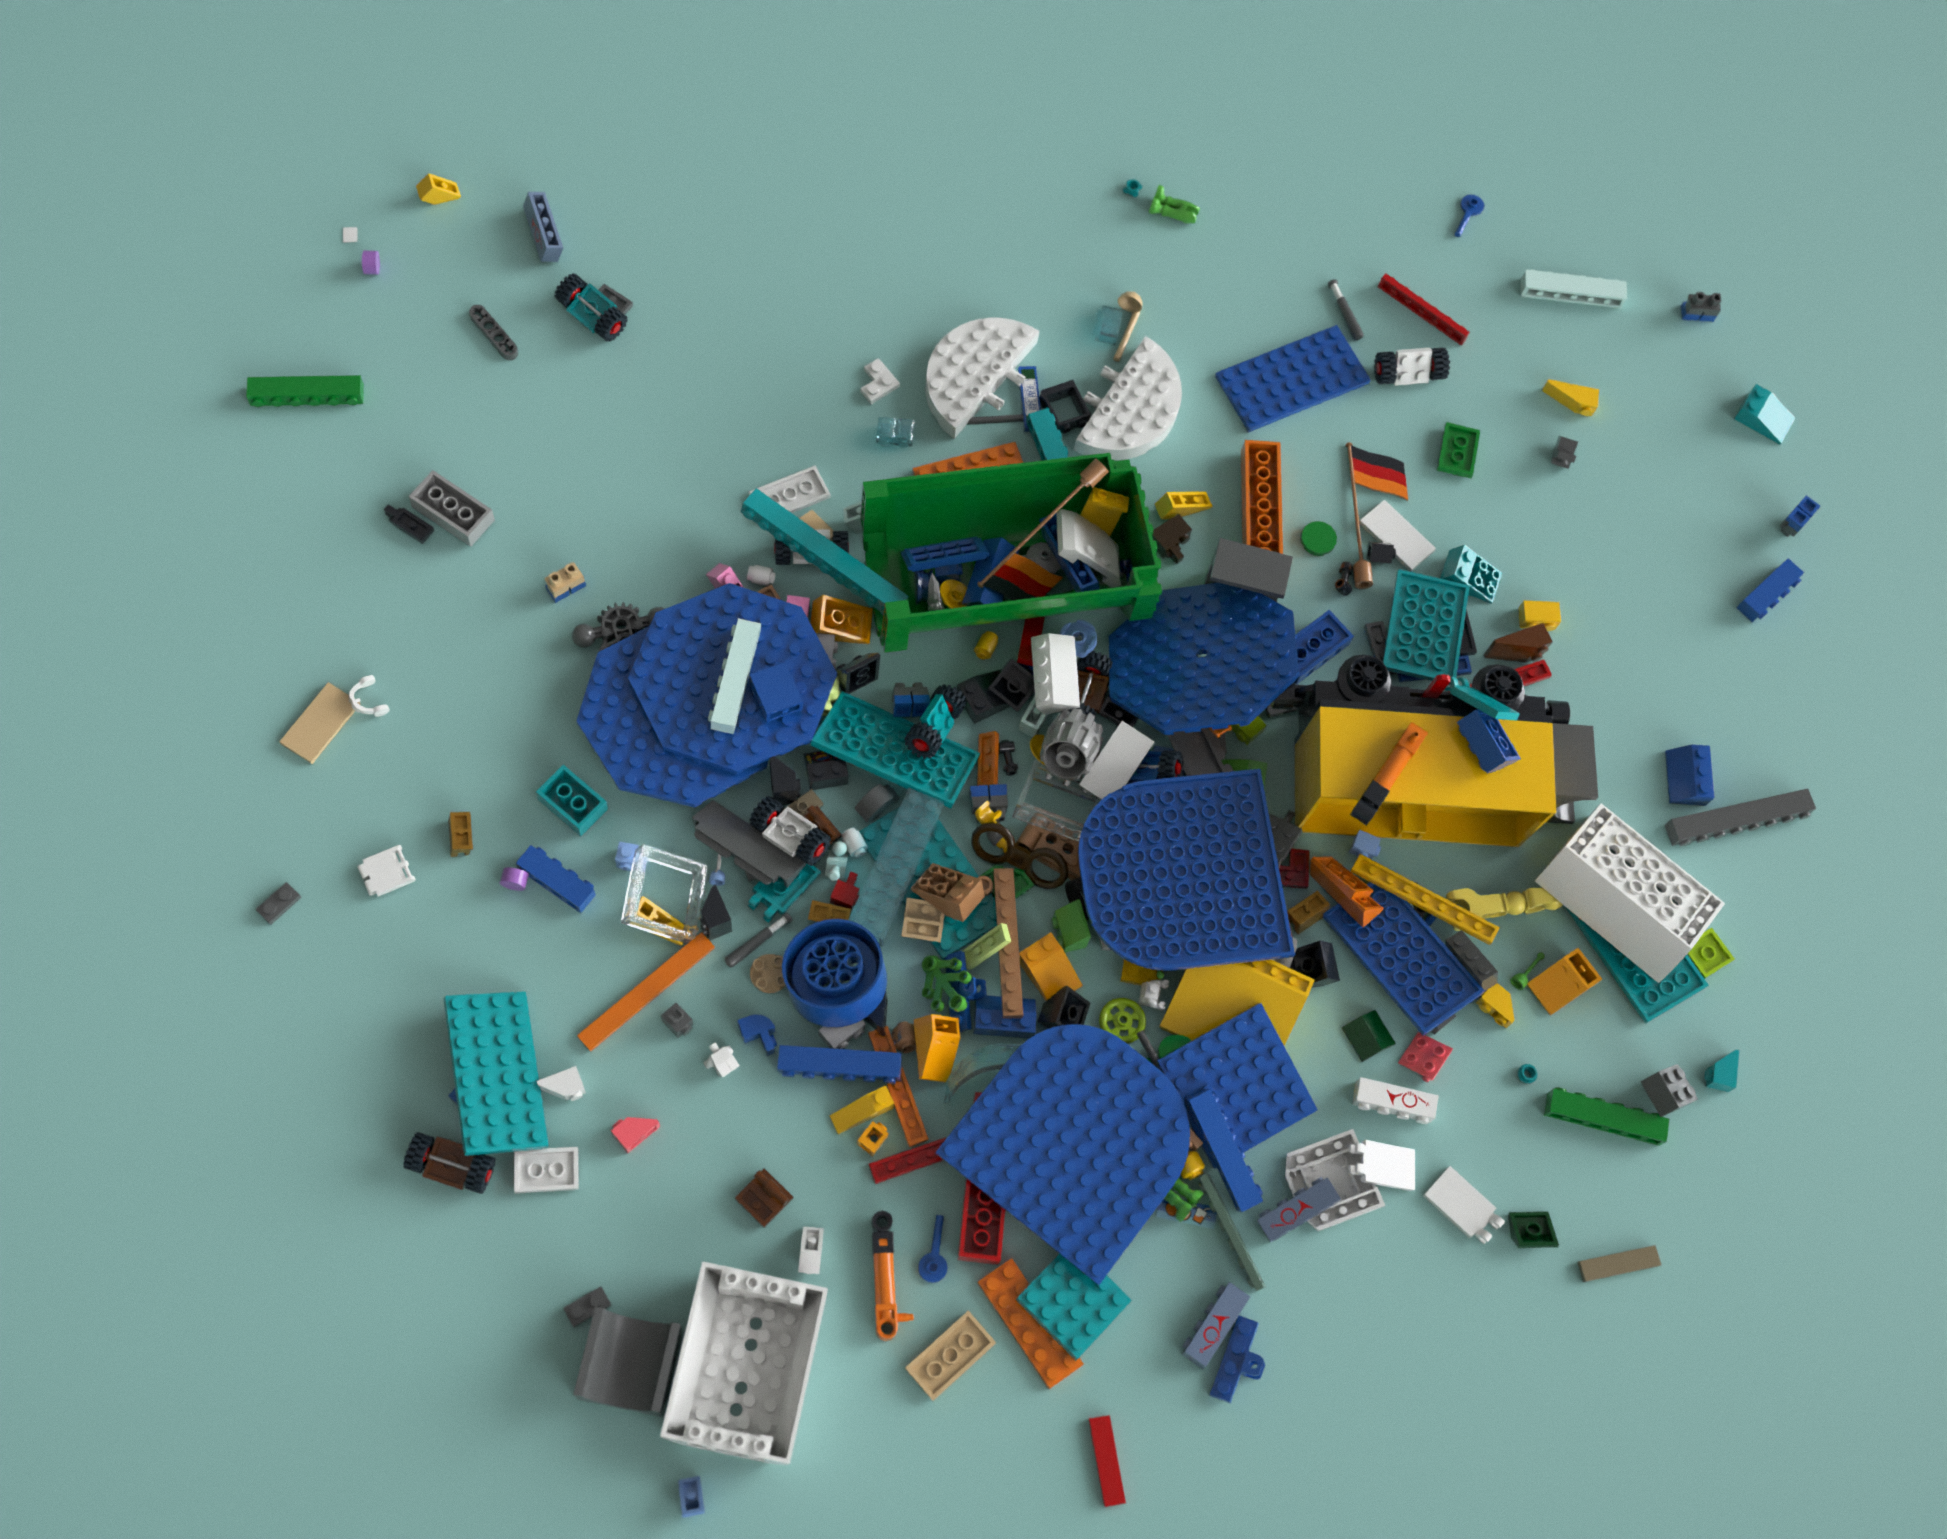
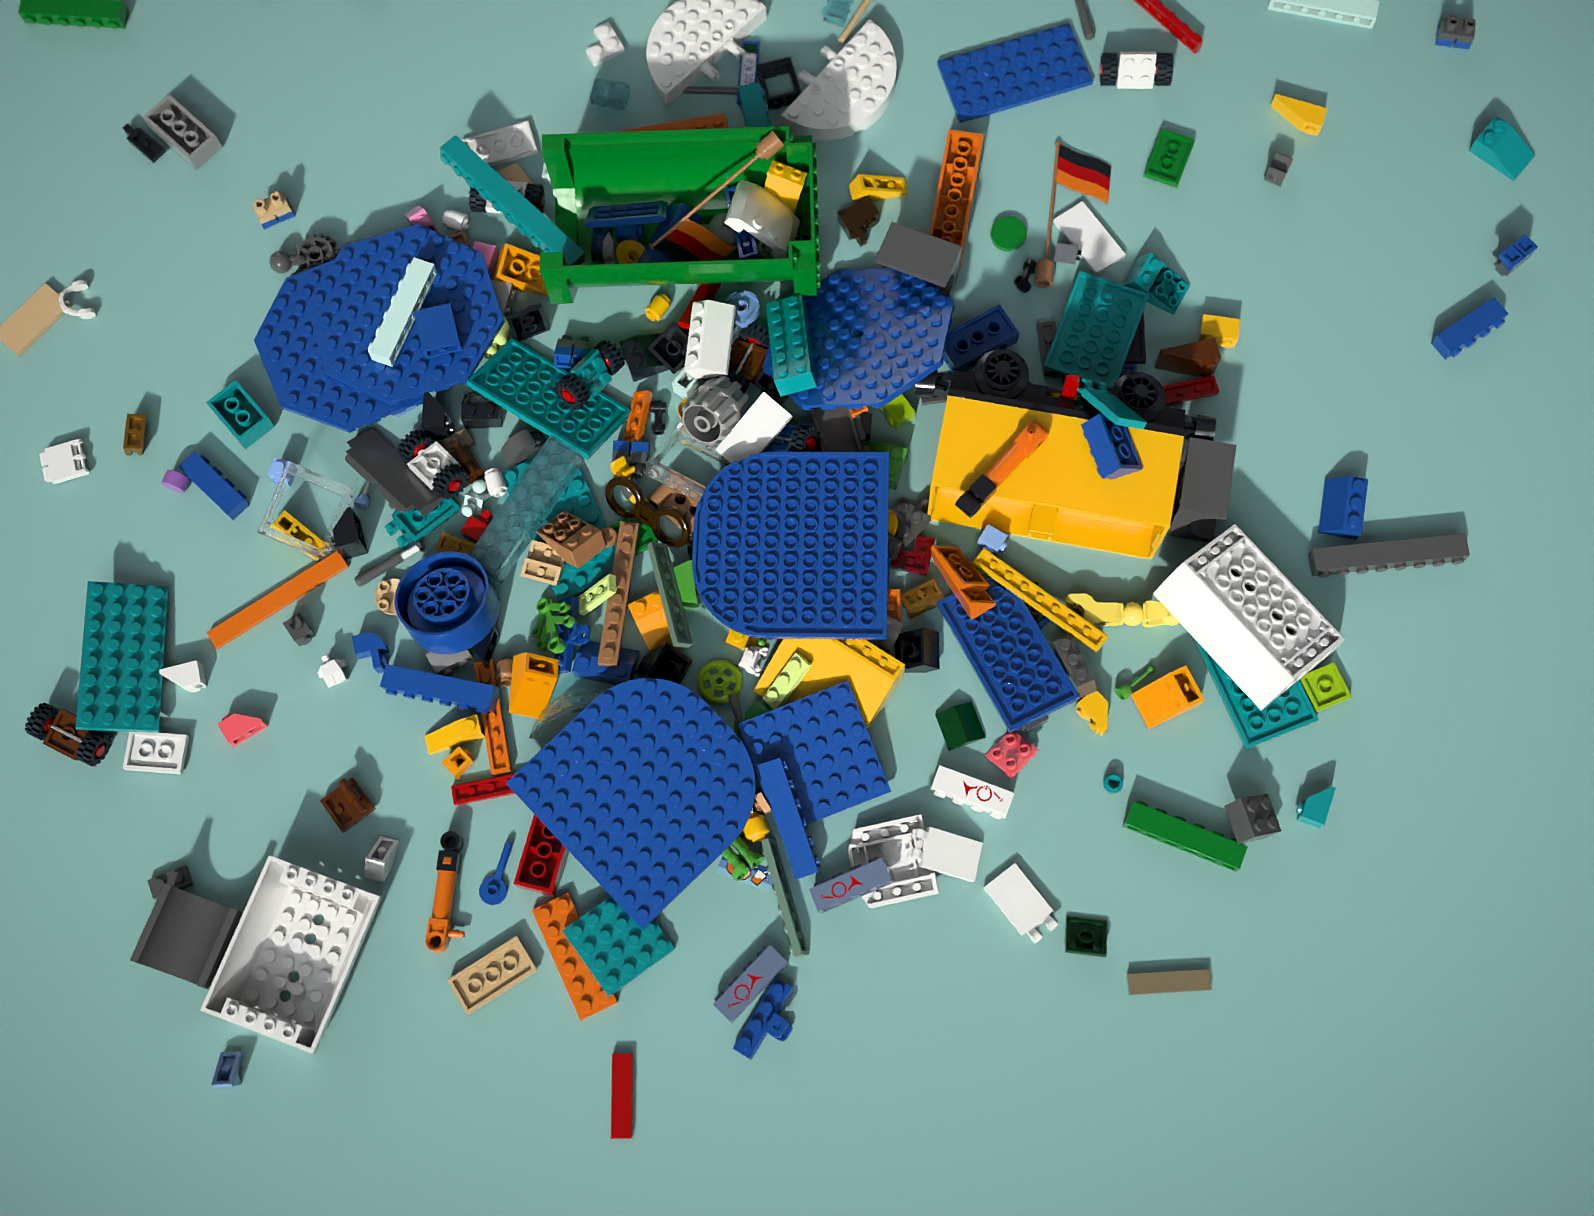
camera: 25 degrees right, 5 degrees up
(1062, 938) = (670, 595): none -> sand green plate
(1139, 671) = (790, 345): none -> teal brick
(1197, 1011) = (787, 681): none -> yellowish green plate

